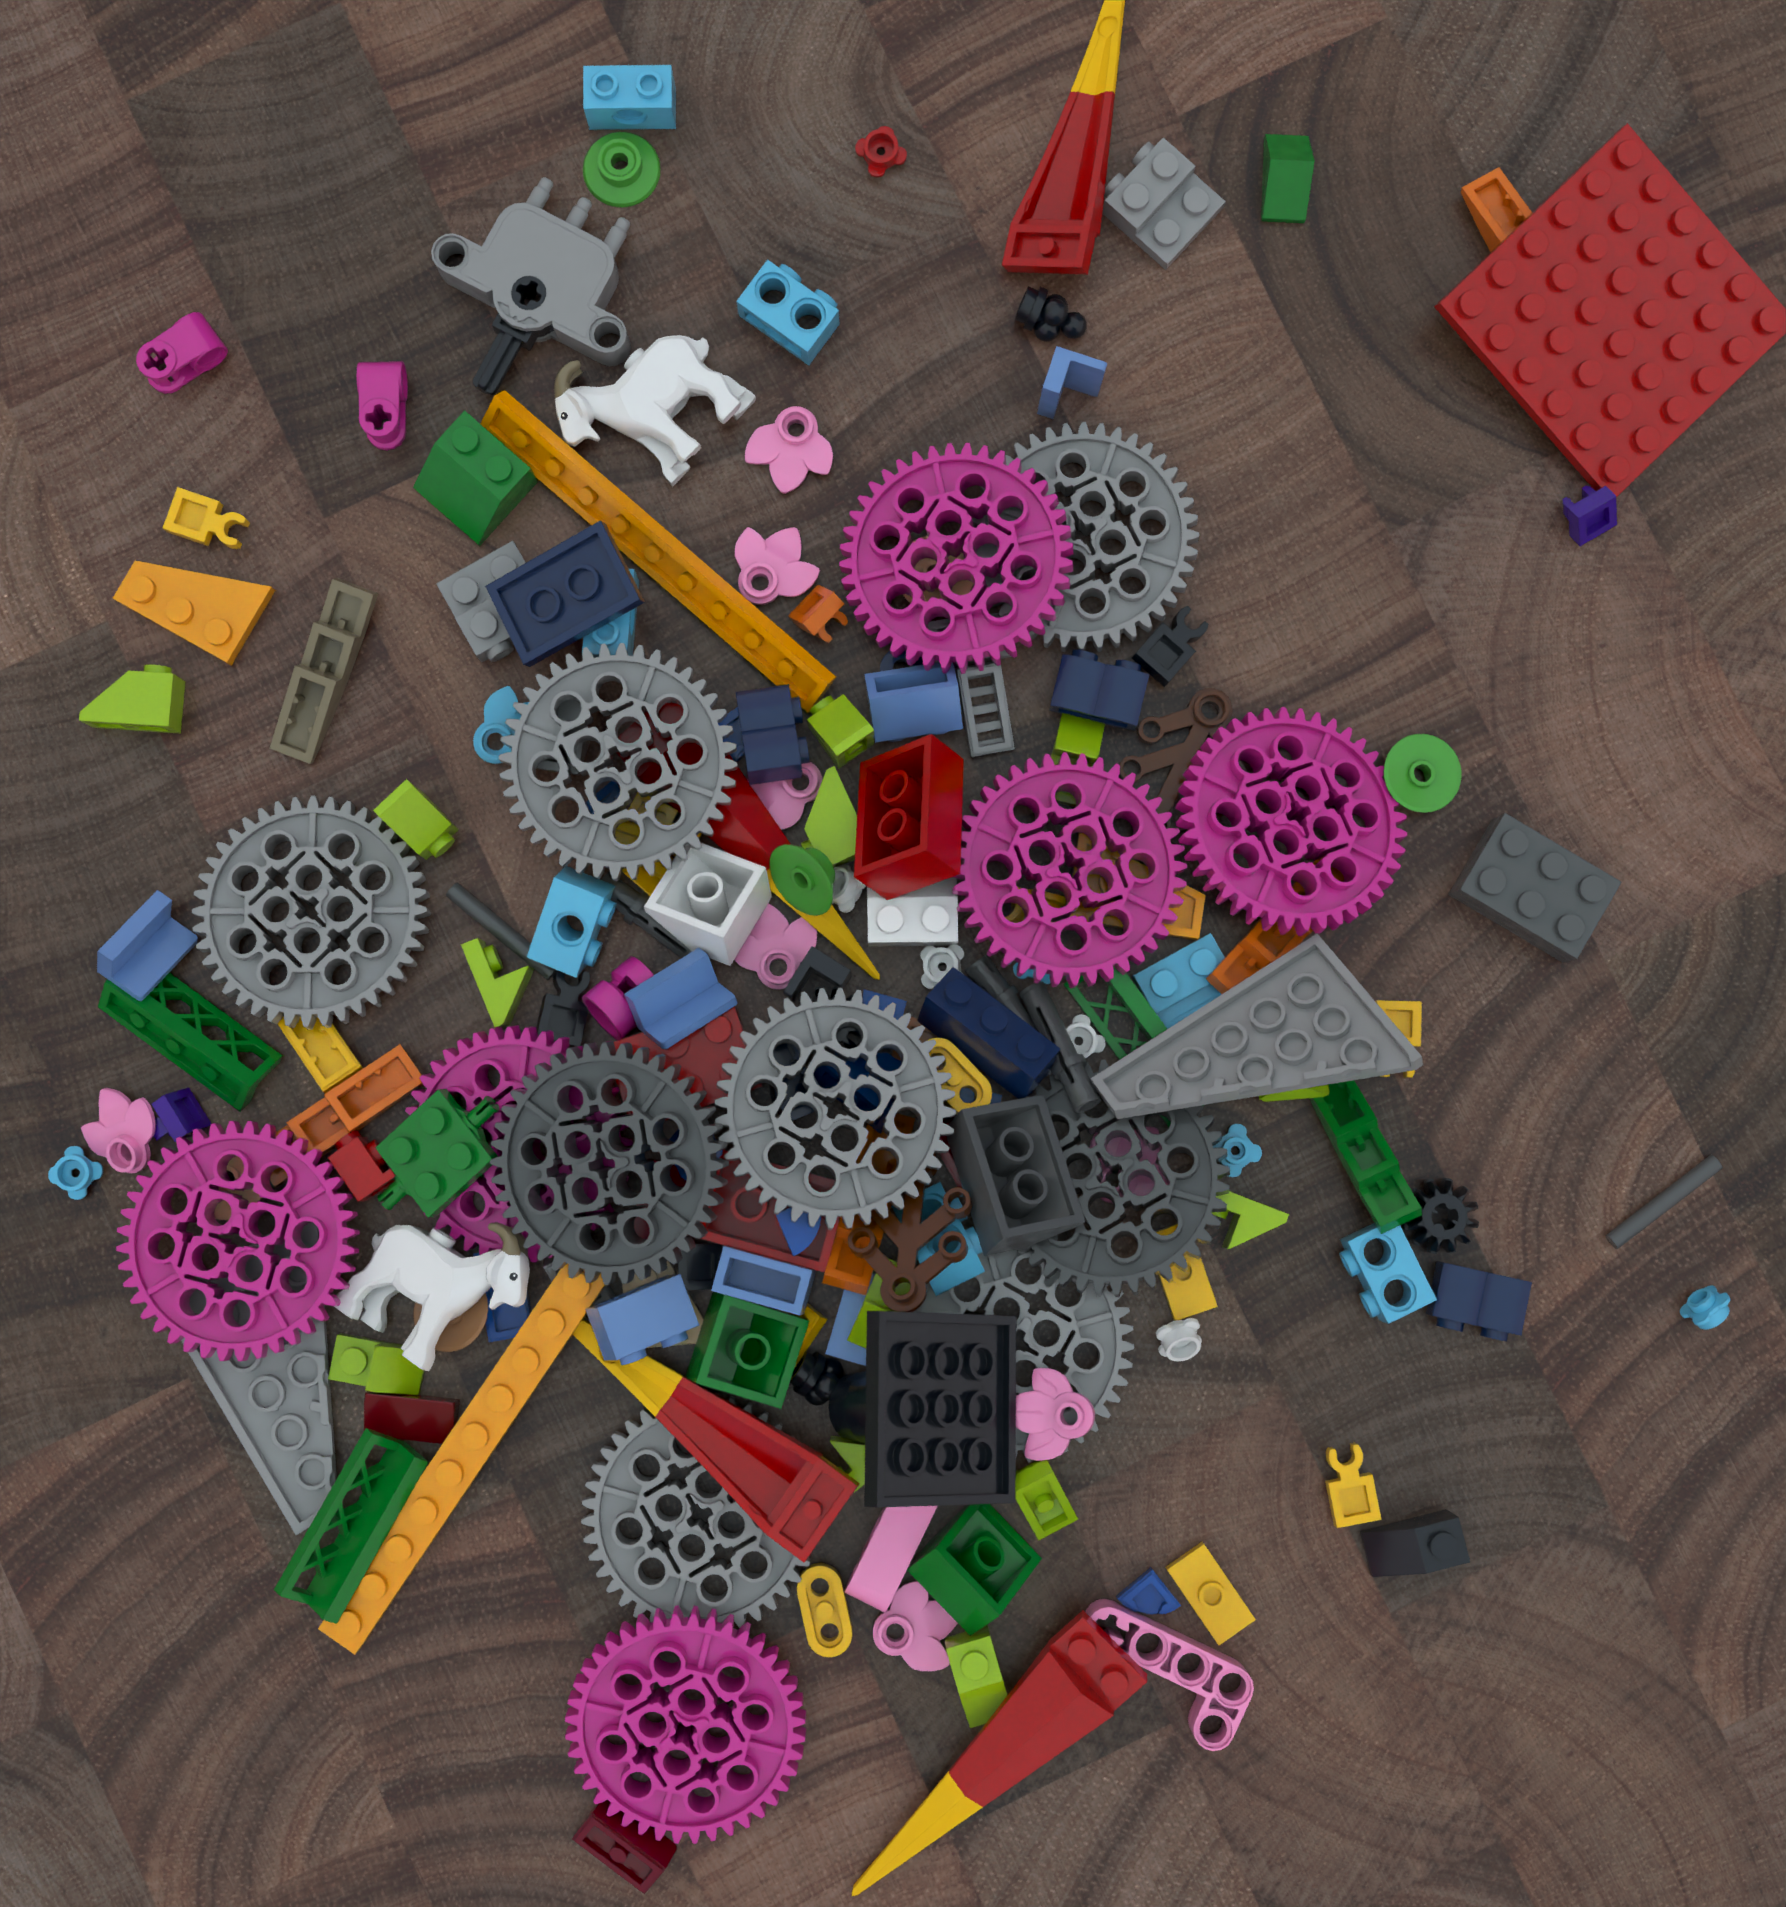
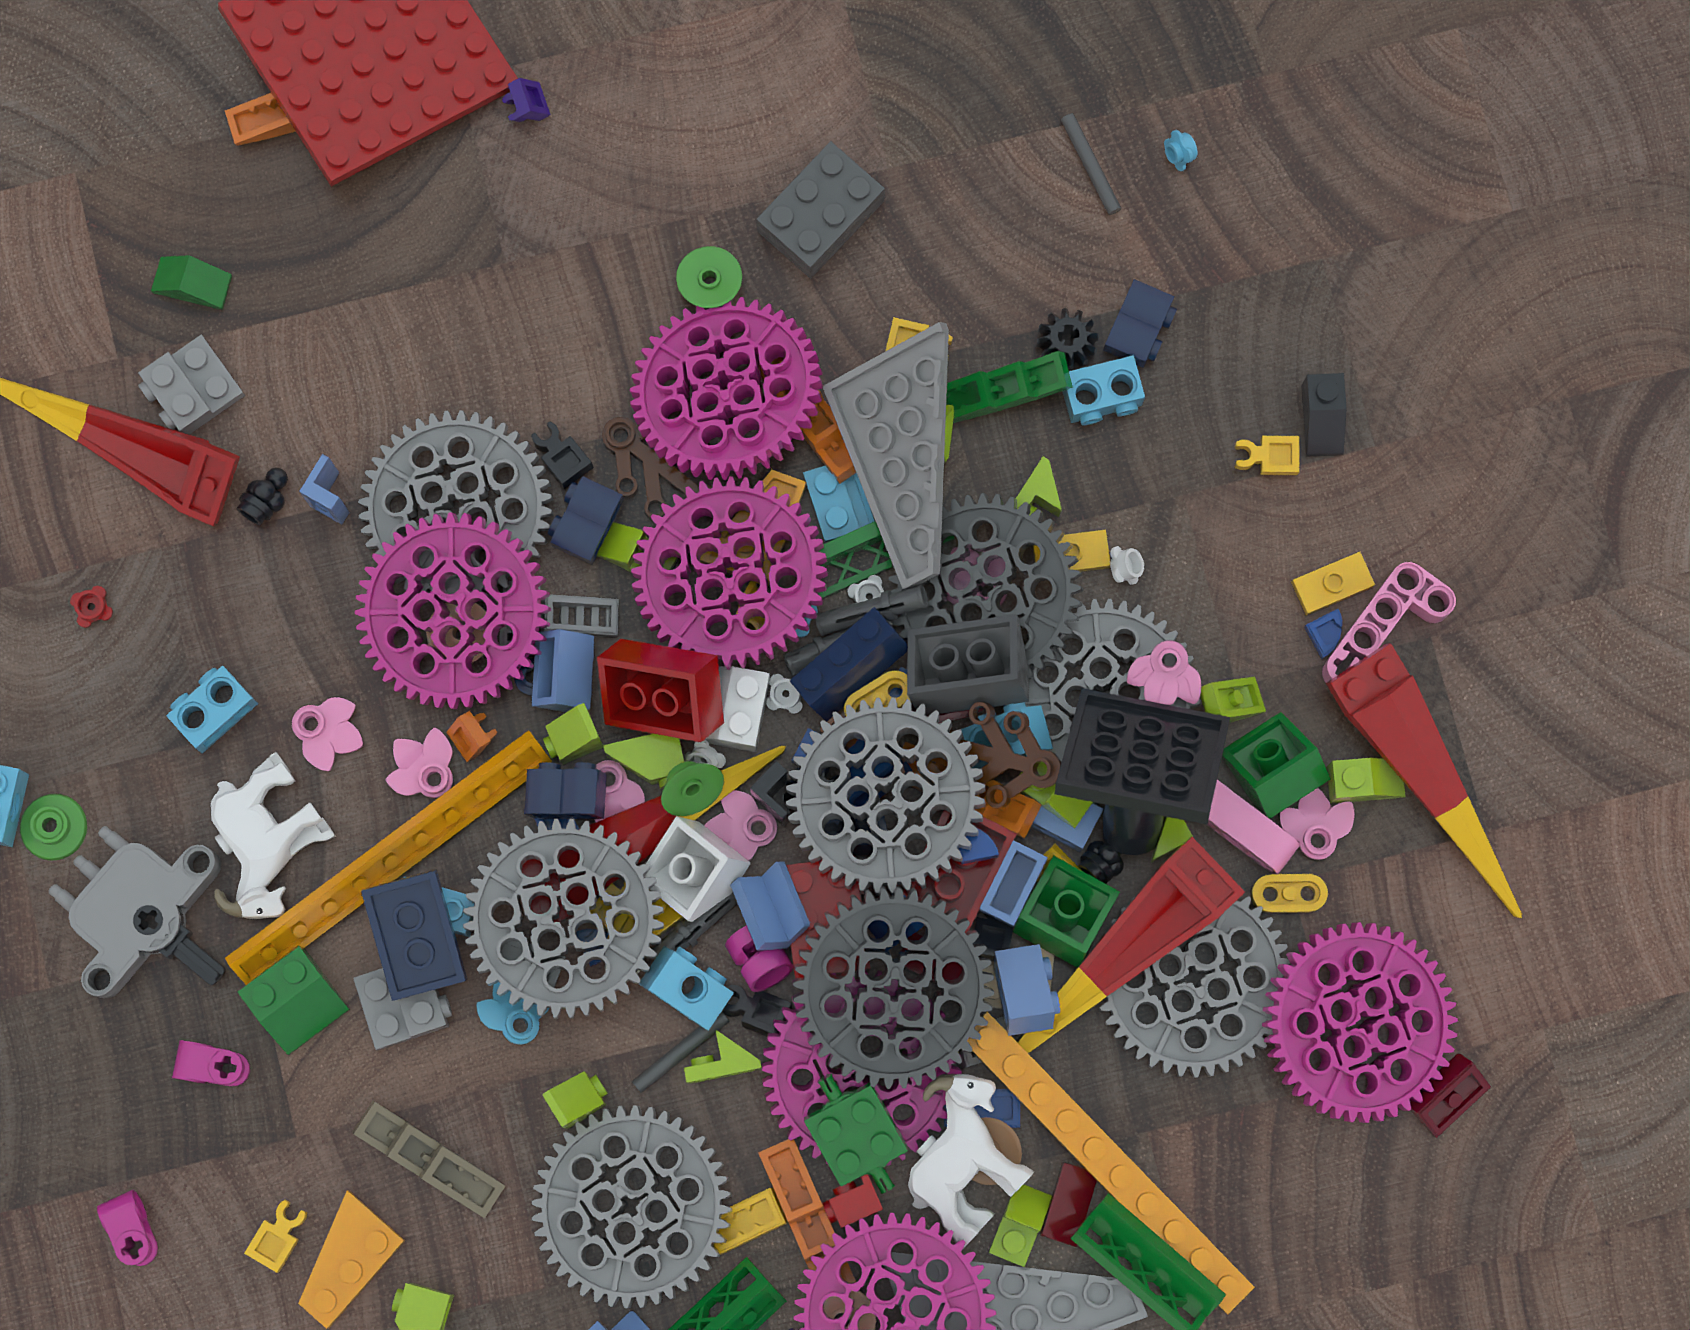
camera: 75 degrees left, 5 degrees down
(1247, 1150) = (987, 480): medium azure plate -> none

